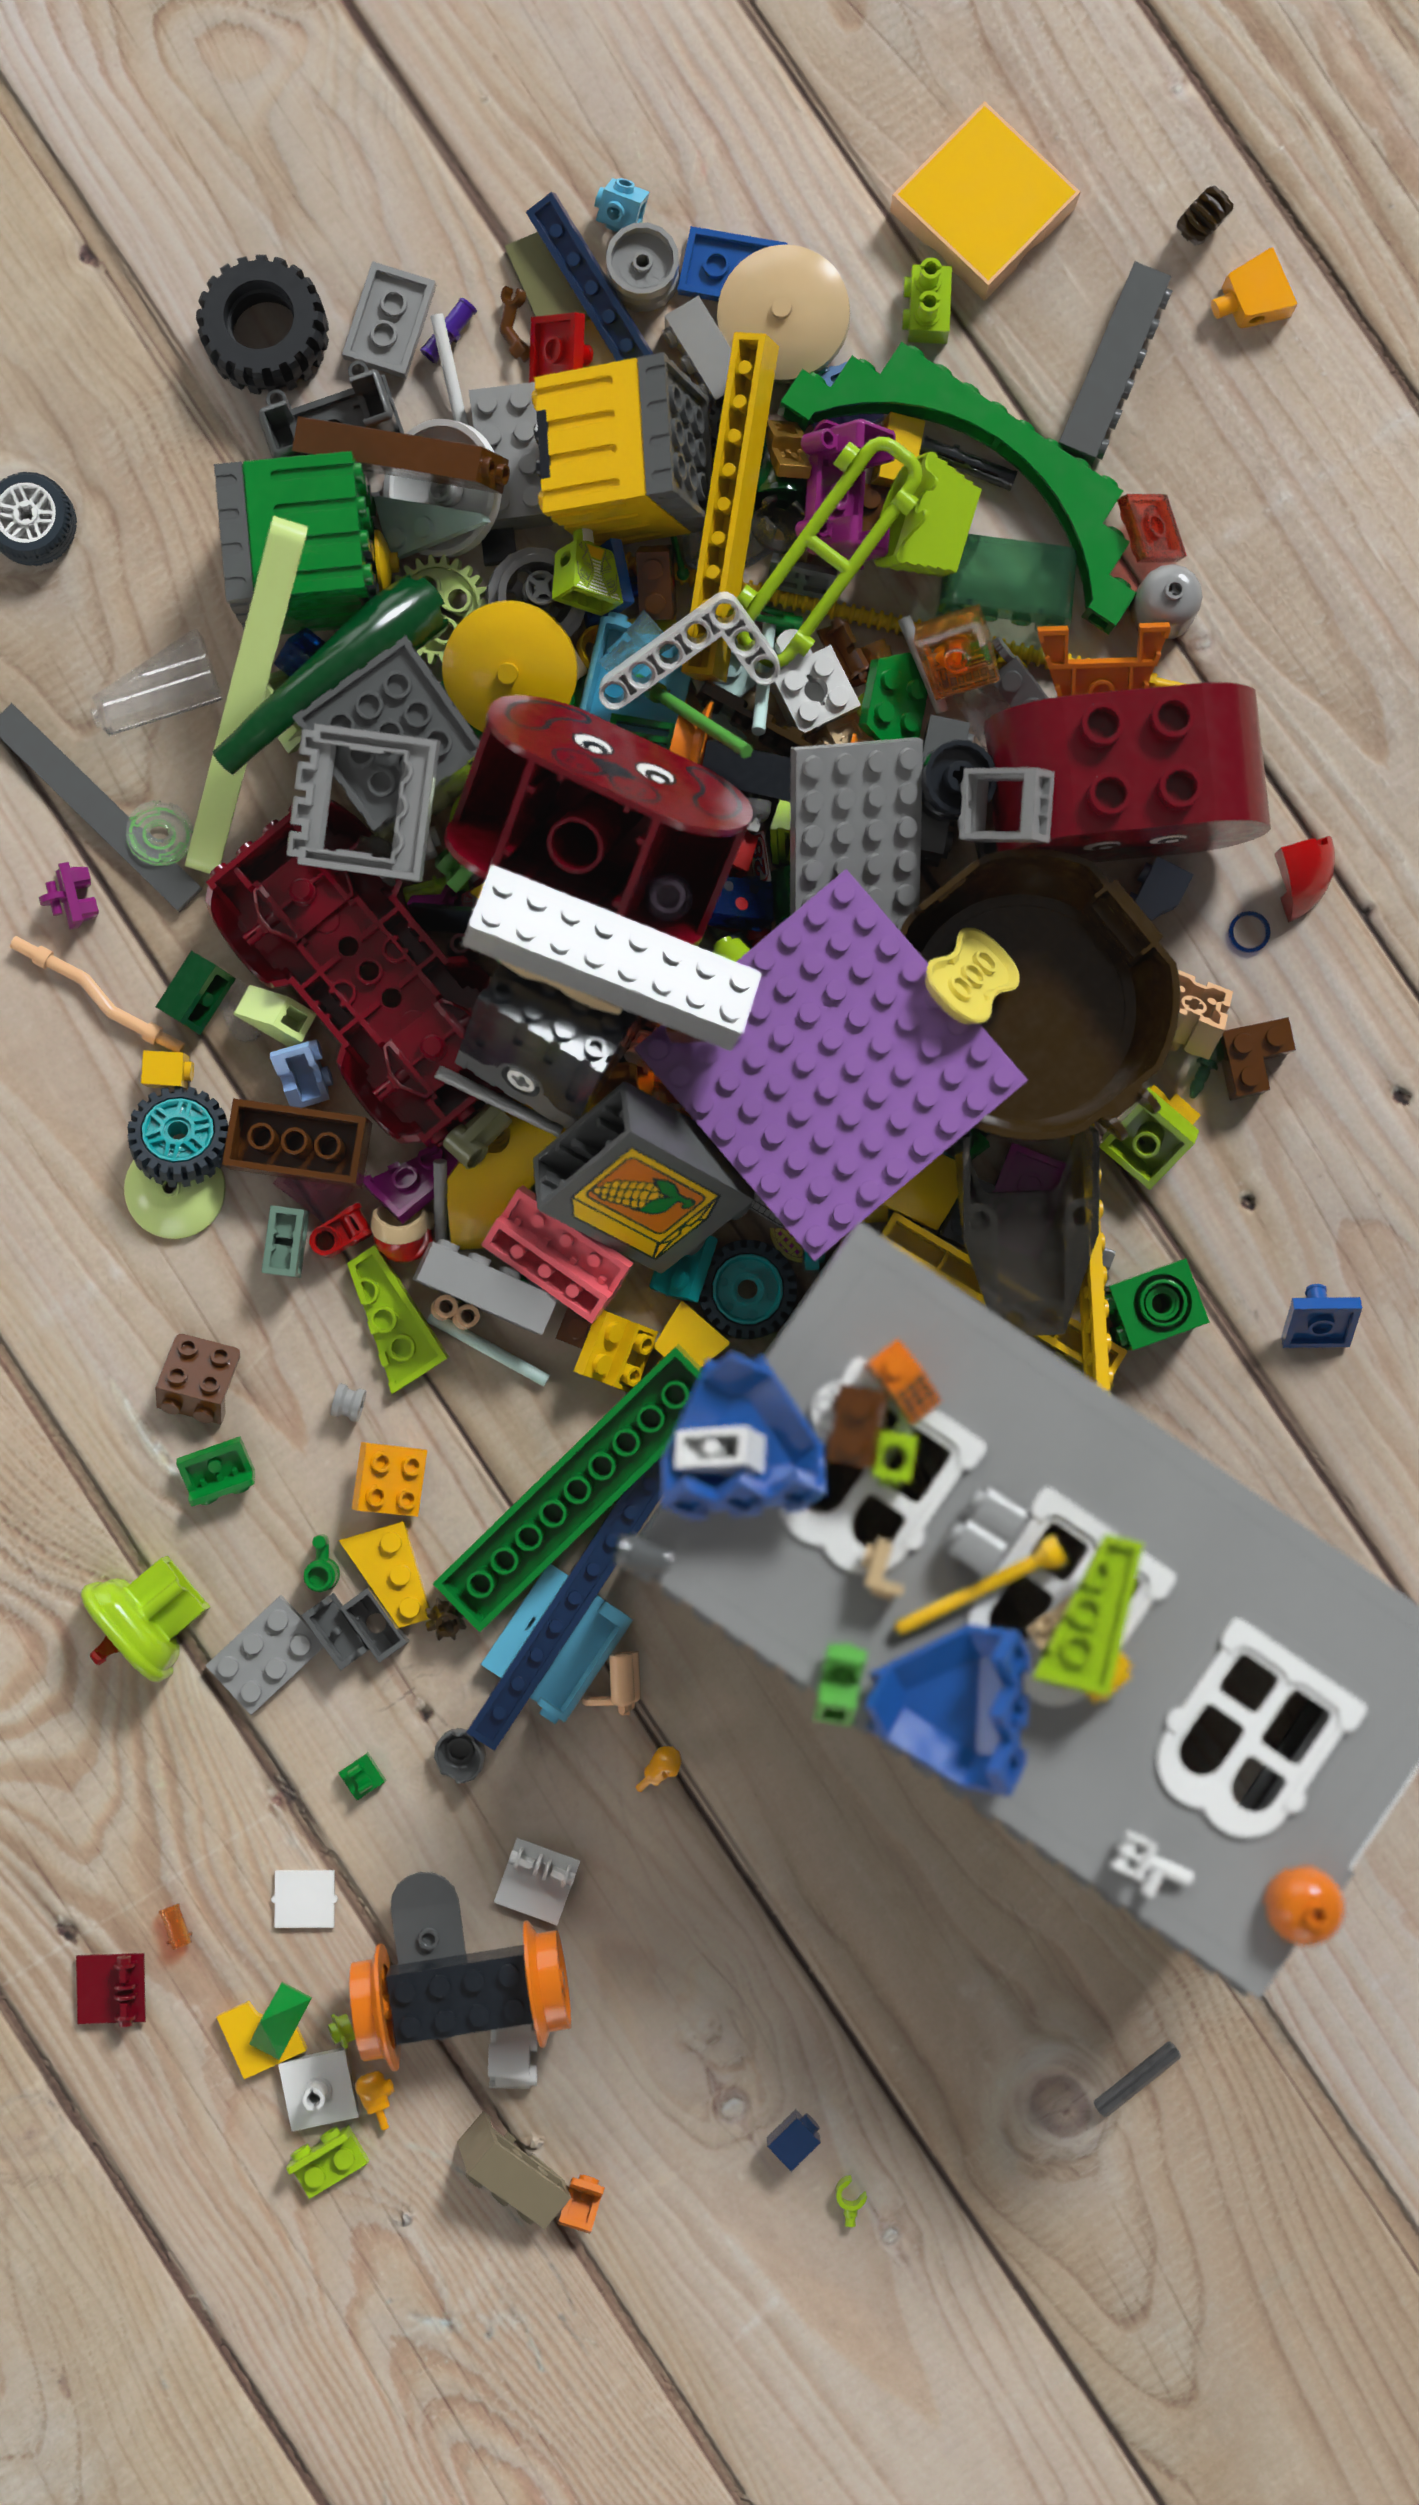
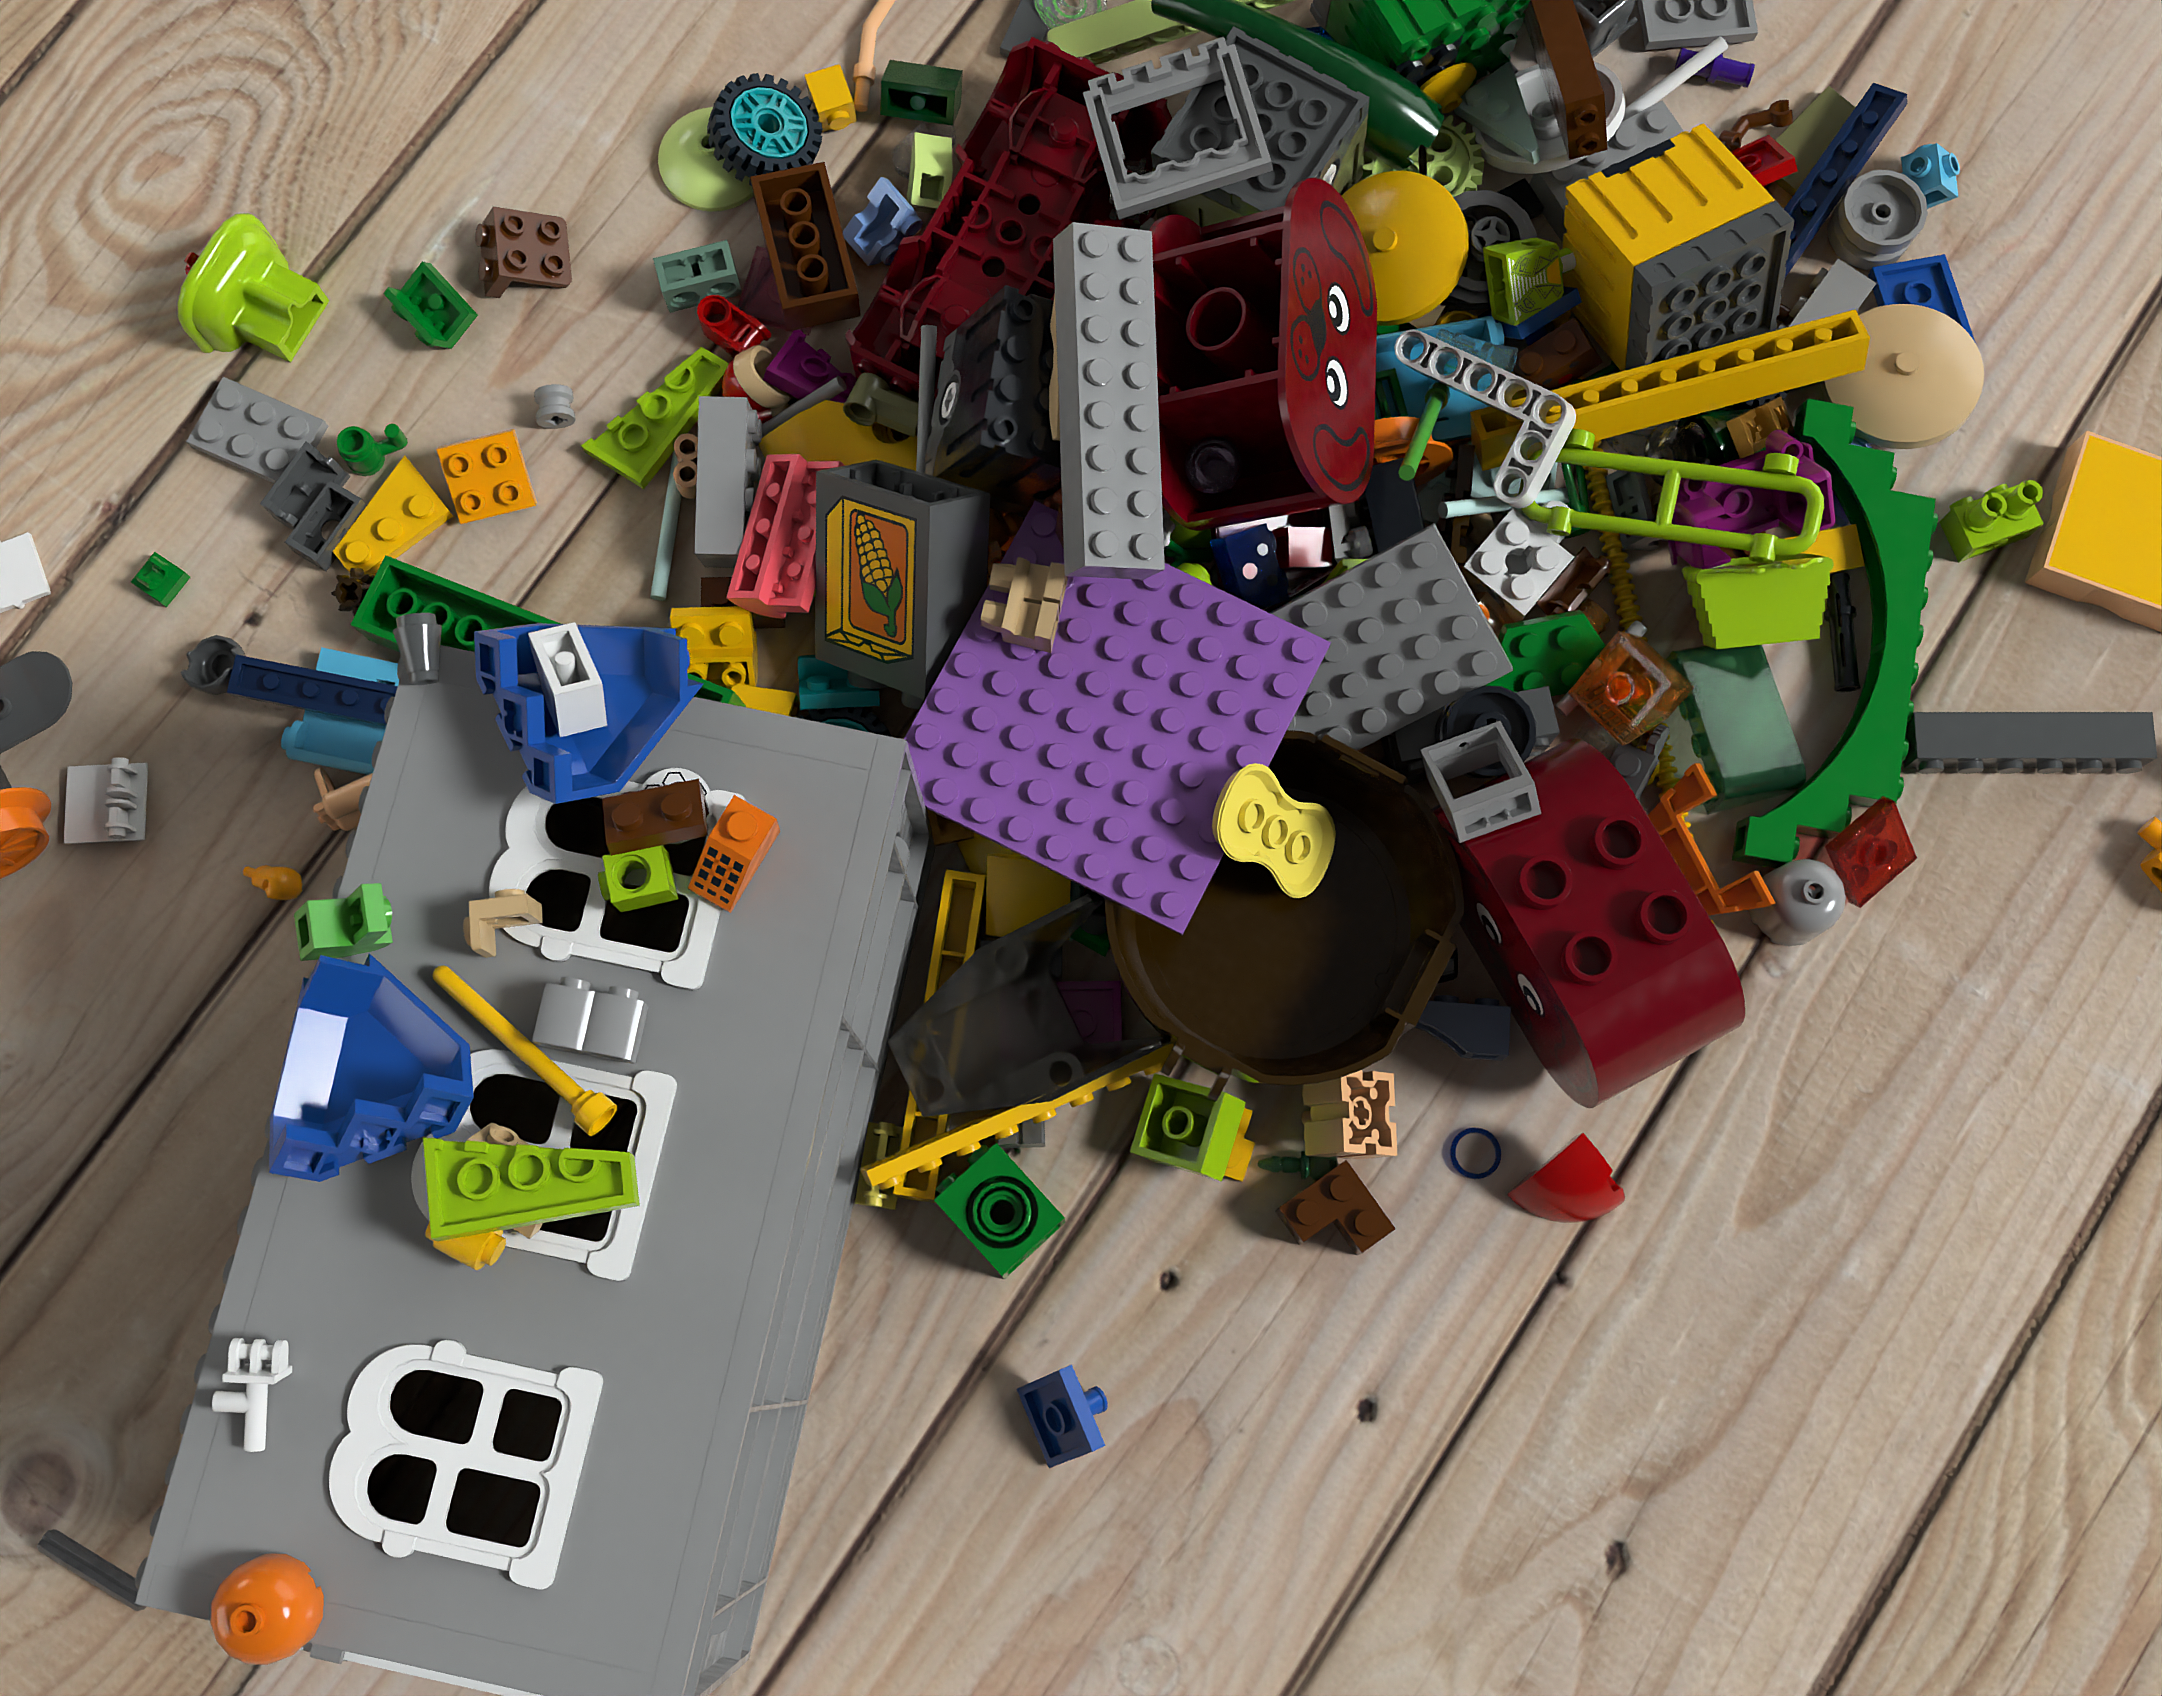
camera: 70 degrees right, 10 degrees down
(710, 1081) = (1032, 603): none -> tan hips

